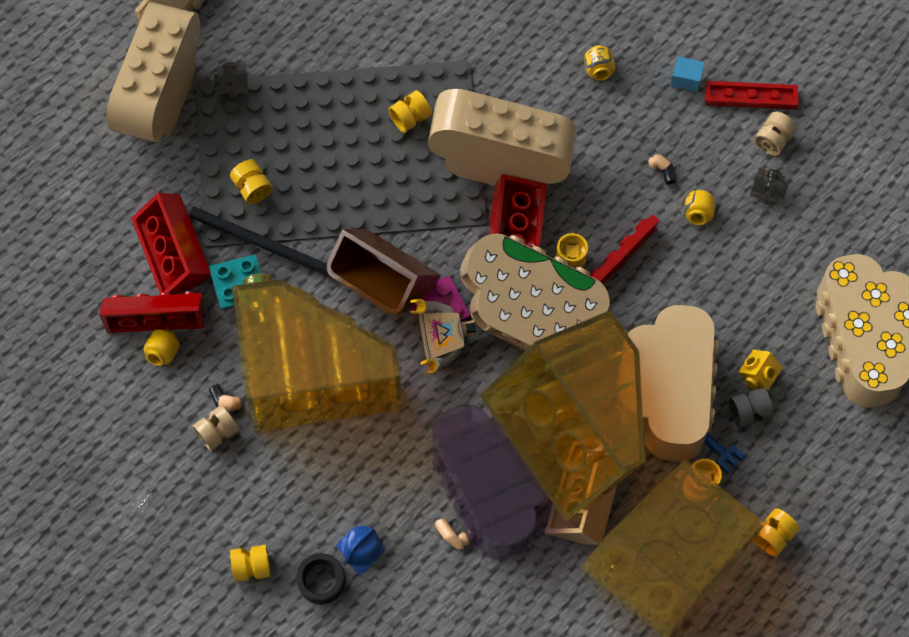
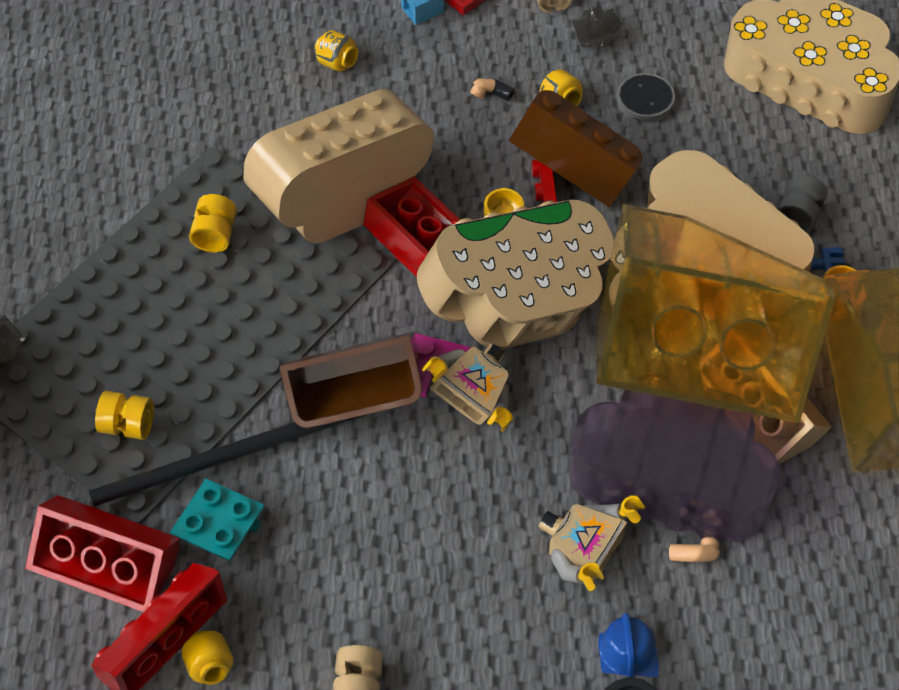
camera: 45 degrees left, 10 degrees down
(228, 402) = (328, 649): arm -> none
(308, 359) = (383, 511): clear yellow slope -> none
(402, 473) = (588, 538): none -> torso
(653, 251) = (577, 146): none -> reddish brown windscreen
(747, 257) = (645, 97): none -> black tile
(760, 369) = (771, 167): yellow brick -> none

